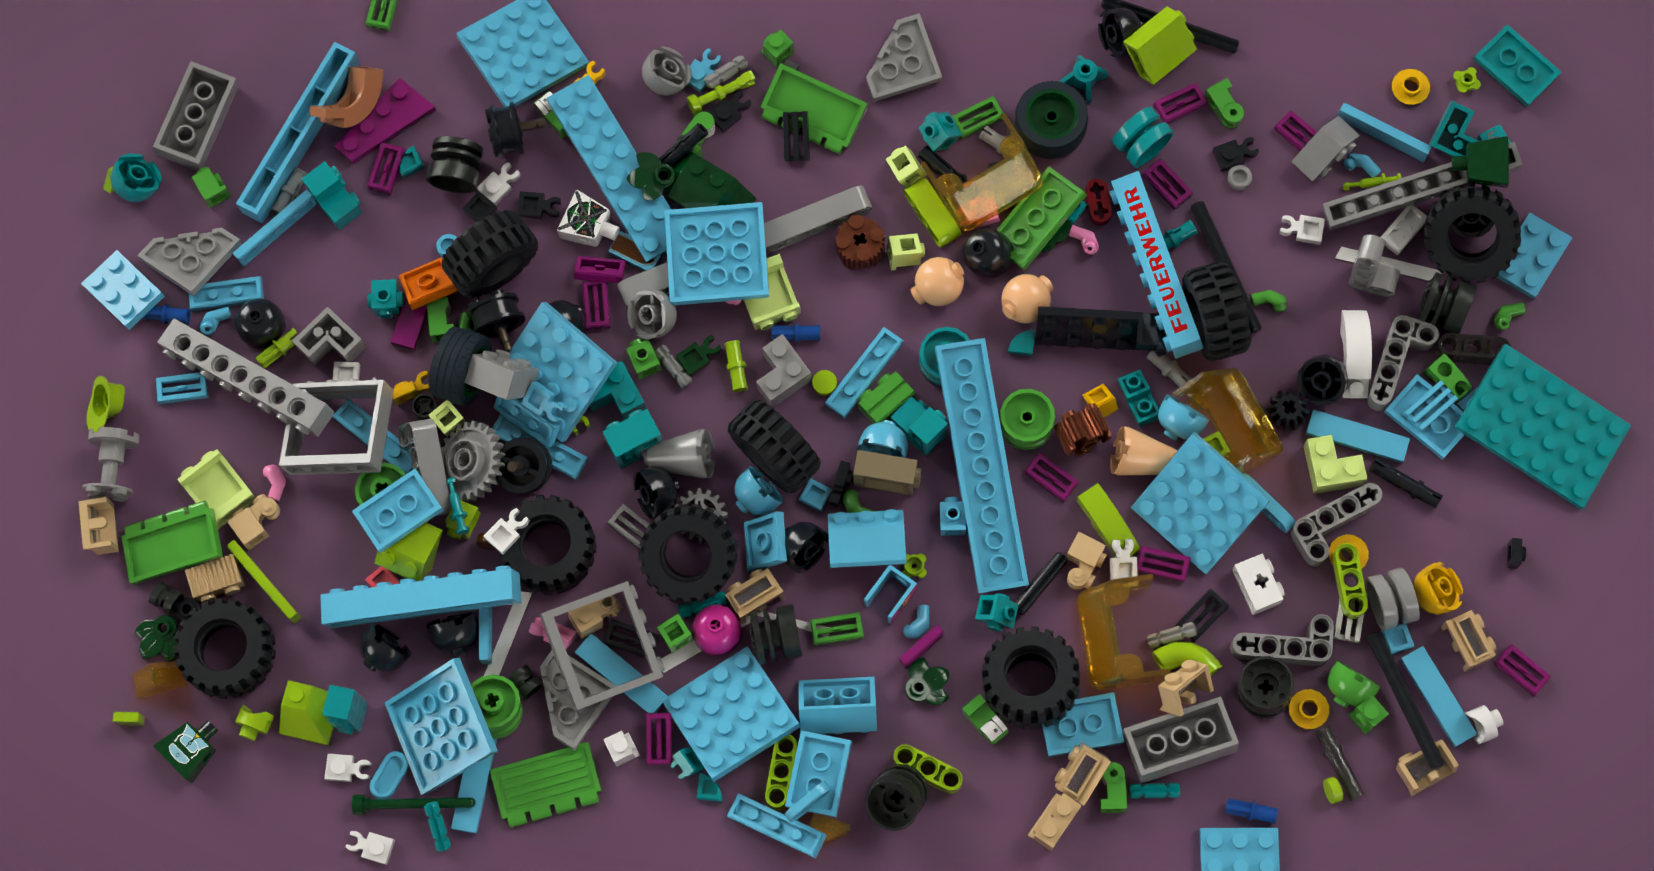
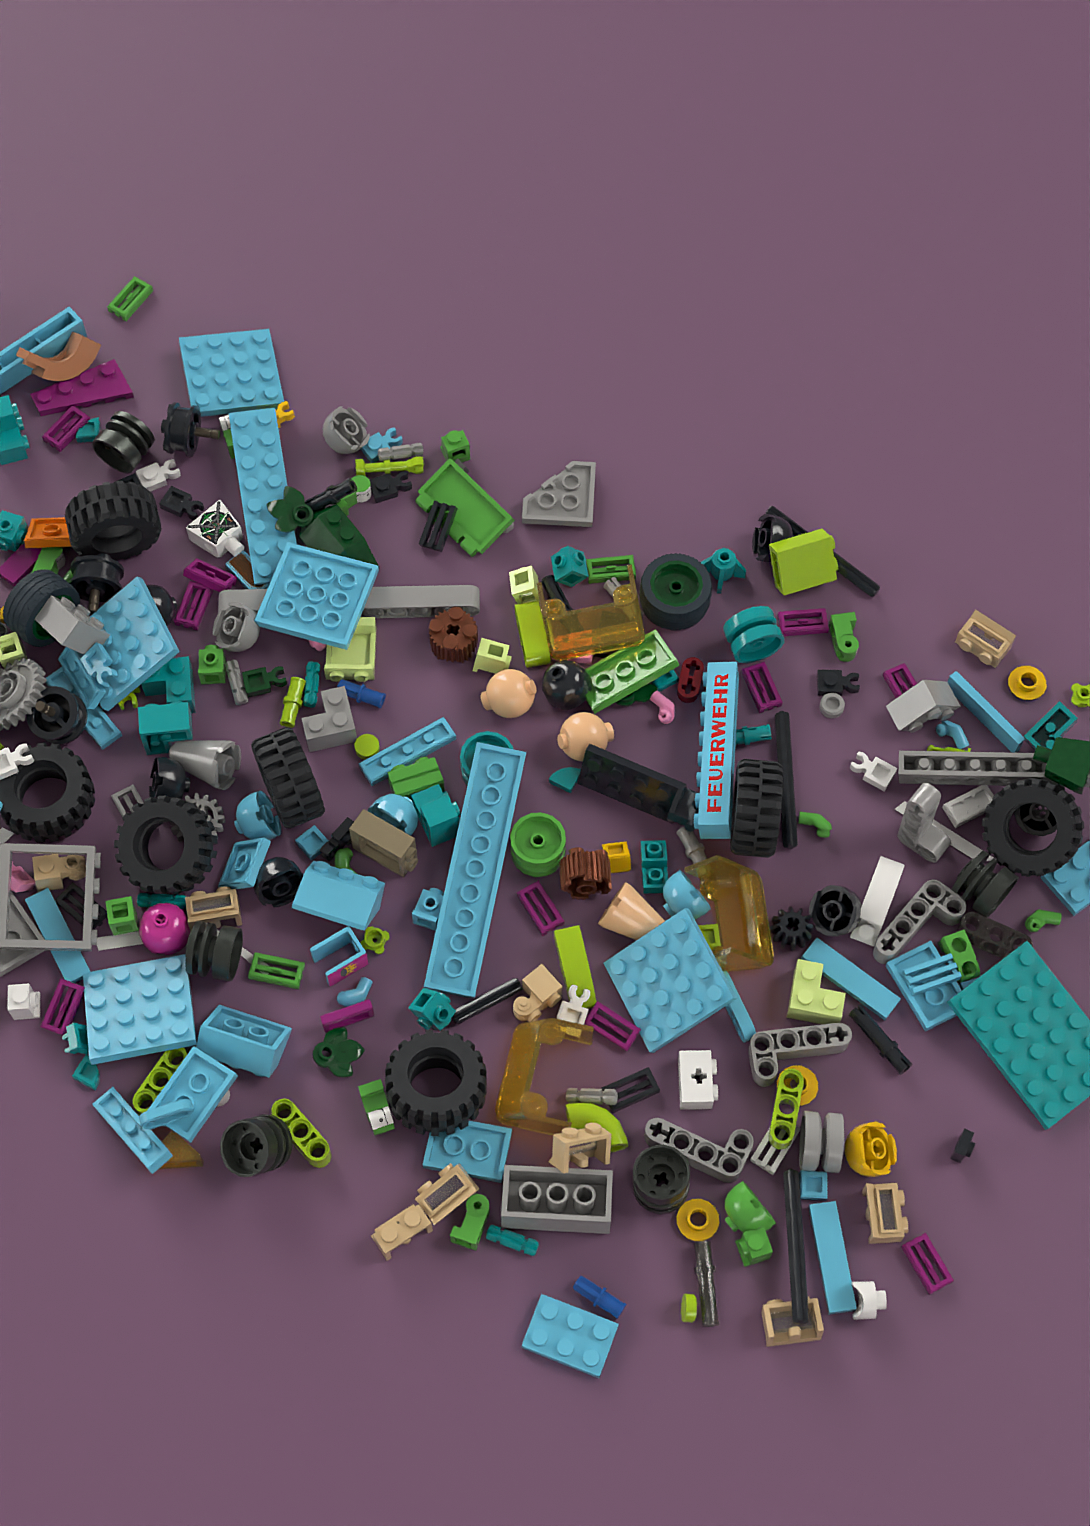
camera: 15 degrees right, 10 degrees down
(746, 342) = (312, 684): none -> teal axle
(1357, 58) = (985, 639): none -> tan window

